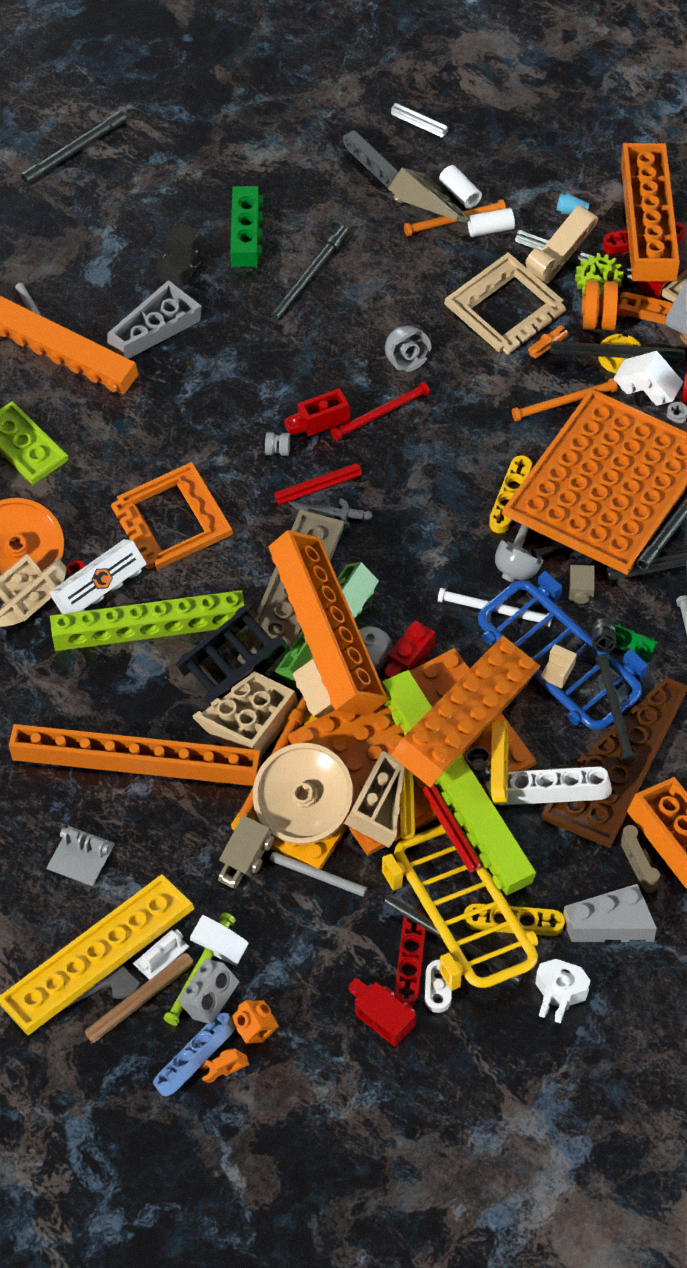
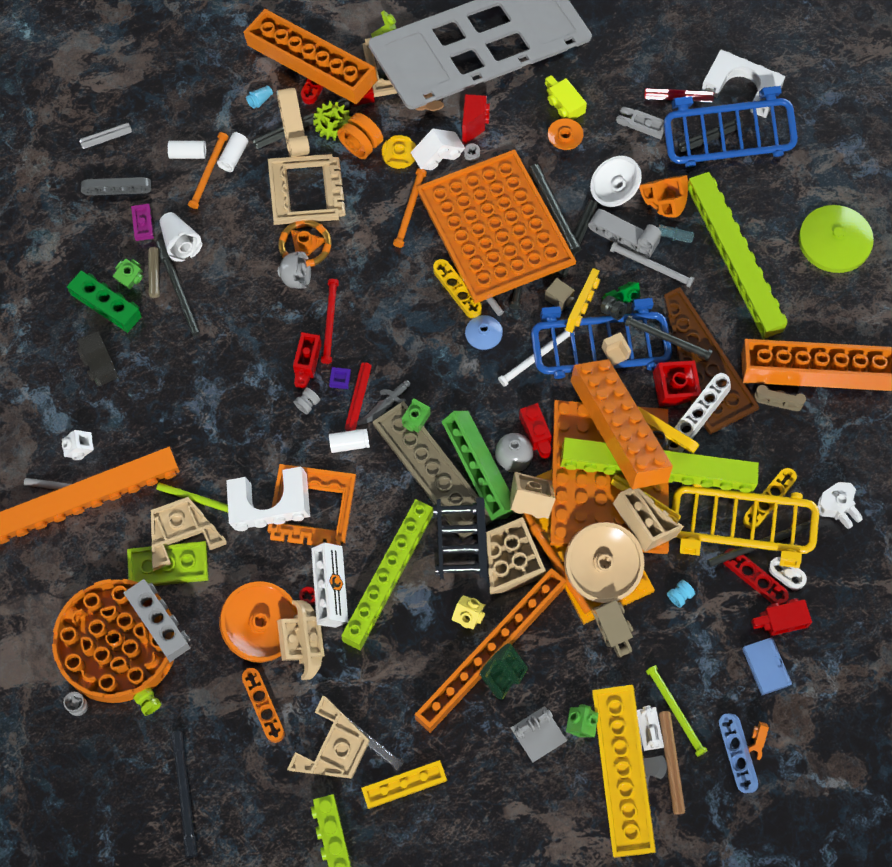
camera: 55 degrees left, 10 degrees up
(67, 421) = (178, 522): none -> tan wing
(82, 296) = (77, 444): none -> white brick
(105, 420) = (193, 497): none -> lime bar
(119, 778) = (503, 670): none -> clear green slope
(119, 882) = (582, 721): none -> bright green brick
(151, 494) = (292, 506): none -> white arch
(153, 321) = (139, 406): light grey wedge -> none
(160, 712) = (468, 612): none -> light yellow brick
(208, 991) = (702, 715): light grey brick -> none
(219, 939) = (667, 685): white slope -> none
(254, 1021) = (741, 700): orange brick -> none
(264, 503) = (349, 440): none -> white pin
(288, 224) = (122, 275): none -> bright green brick
(308, 245) = (154, 291): none -> dark tan axle
(316, 1028) = (767, 666): none -> medium blue piece
(318, 874) = (657, 592): light grey bar -> none
(325, 456) = (340, 378): none -> dark purple plate
(327, 623) = (496, 462): orange brick -> none
(332, 894) = (681, 593): none -> medium azure wheel
(333, 537) = (416, 423): none -> bright green brick
(353, 203) = (142, 222): none -> magenta plate
(358, 238) = (179, 238): none -> white cone
(423, 192) = (170, 176): dark tan wedge -> none
(449, 342) = (306, 242): none -> orange piece
(452, 828) = (691, 490): red axle -> none
(480, 554) = (483, 339): none -> medium blue dish
(516, 562) = (517, 320): light grey cylinder -> none
(543, 344) = (357, 185): orange axle -> none
(569, 744) = (676, 382): none -> red slope
(588, 603) = (581, 304): none -> yellow plate
(610, 917) = (809, 441): light grey wedge -> none
(615, 351) = (400, 152): pearl dark grey axle -> none
(645, 307) = (384, 108): orange plate -> none

